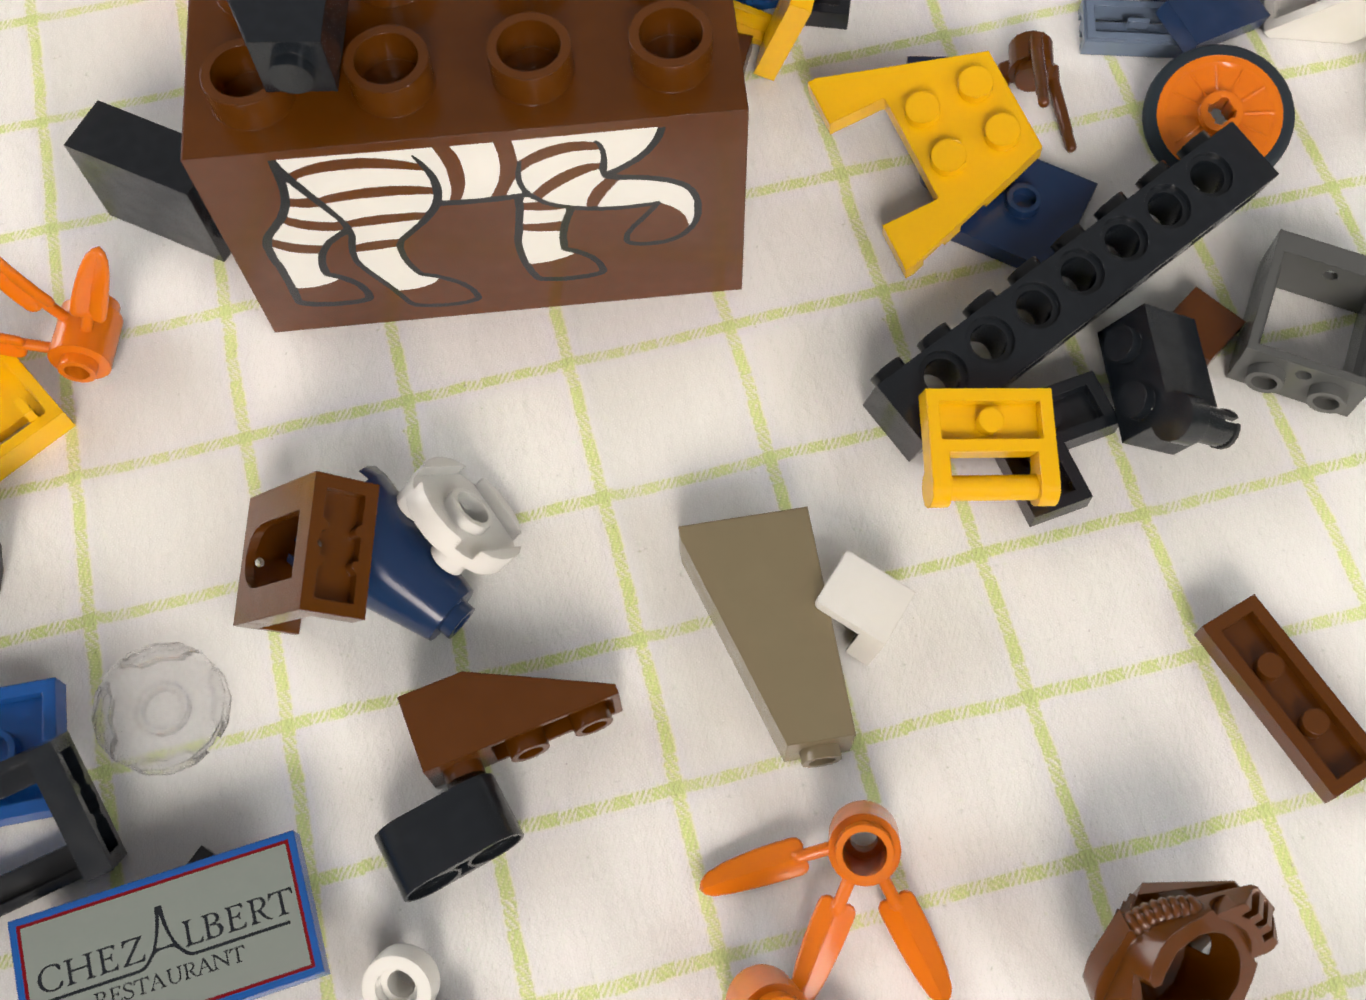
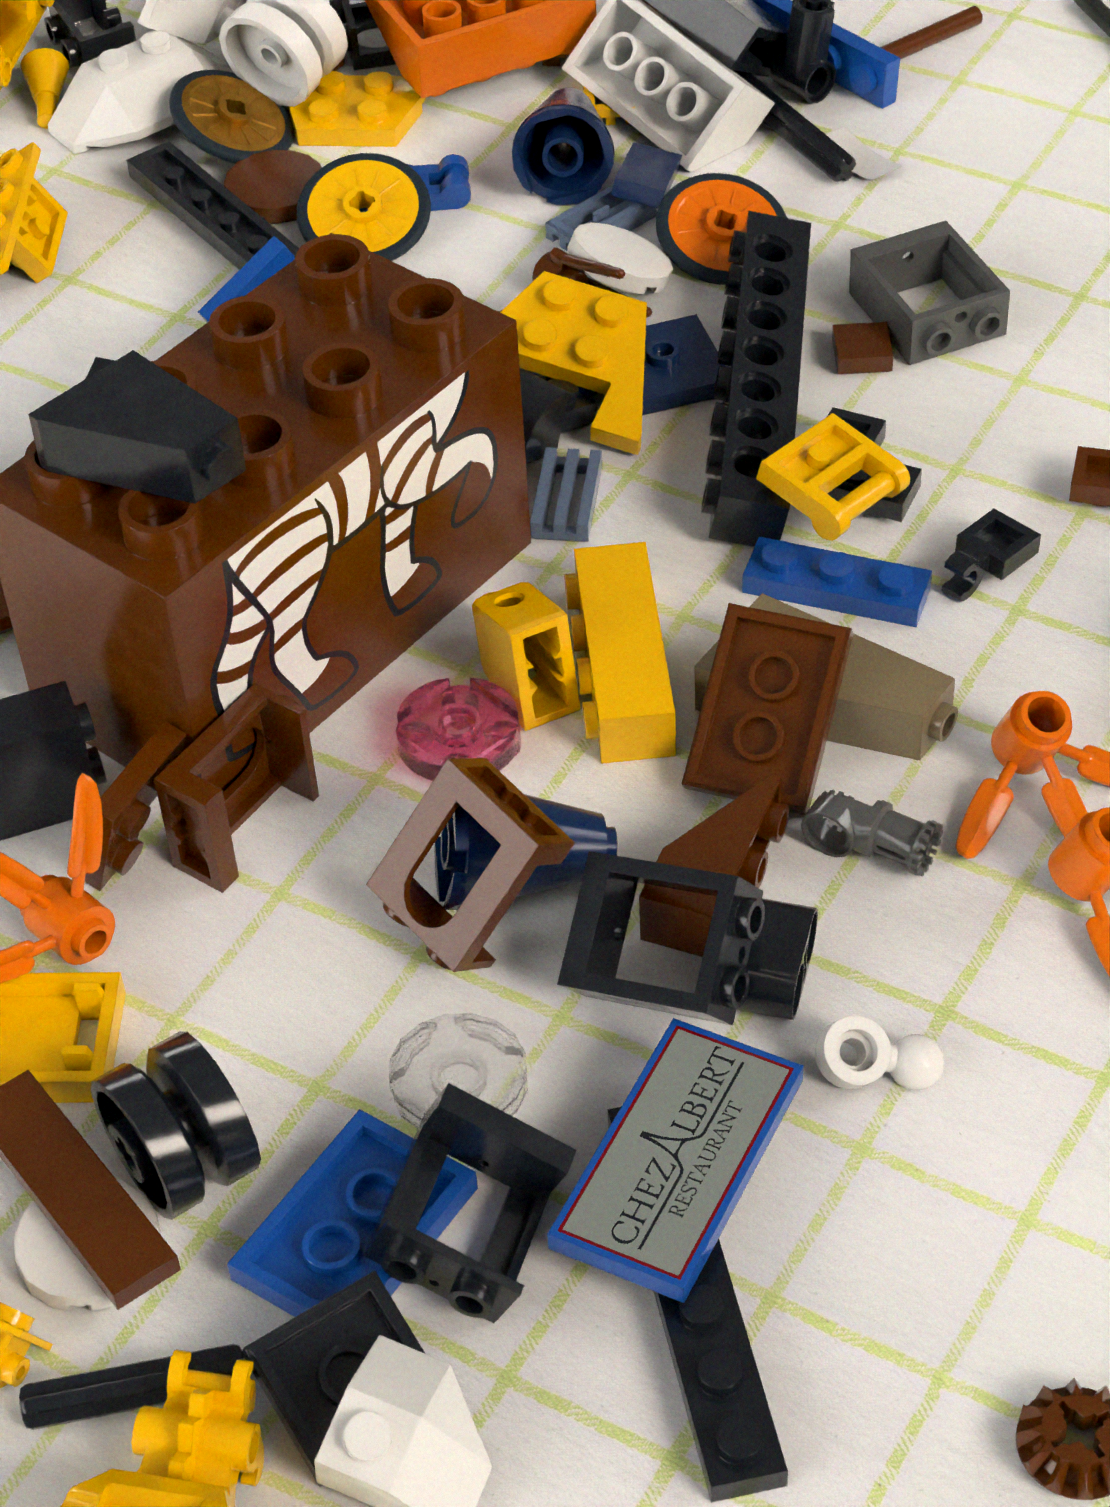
camera: 45 degrees left, 20 degrees down
(178, 288) = (128, 801): none -> reddish brown plate
(215, 352) = (201, 815): none -> reddish brown panel
(357, 685) = (602, 923): none -> black window
(463, 521) = (547, 776): white plate -> none
(493, 447) = (437, 706): none -> clear pink plate
(591, 369) = (525, 631): none -> yellow torso
(656, 808) = (870, 831): none -> dark grey connector
(667, 454) = (623, 652): none -> yellow brick
(689, 618) = (768, 705): none -> reddish brown tile
(773, 267) = (570, 467): none -> sand blue tile
(852, 176) = (550, 410): none -> black brick
(865, 603) = (870, 612): white panel -> none
(913, 538) = (837, 581): none -> blue plate
(1064, 622) = (992, 546): none -> black plate
(1093, 80) = (639, 258): none -> white tile
(1163, 383) = (887, 381): black hinge -> none

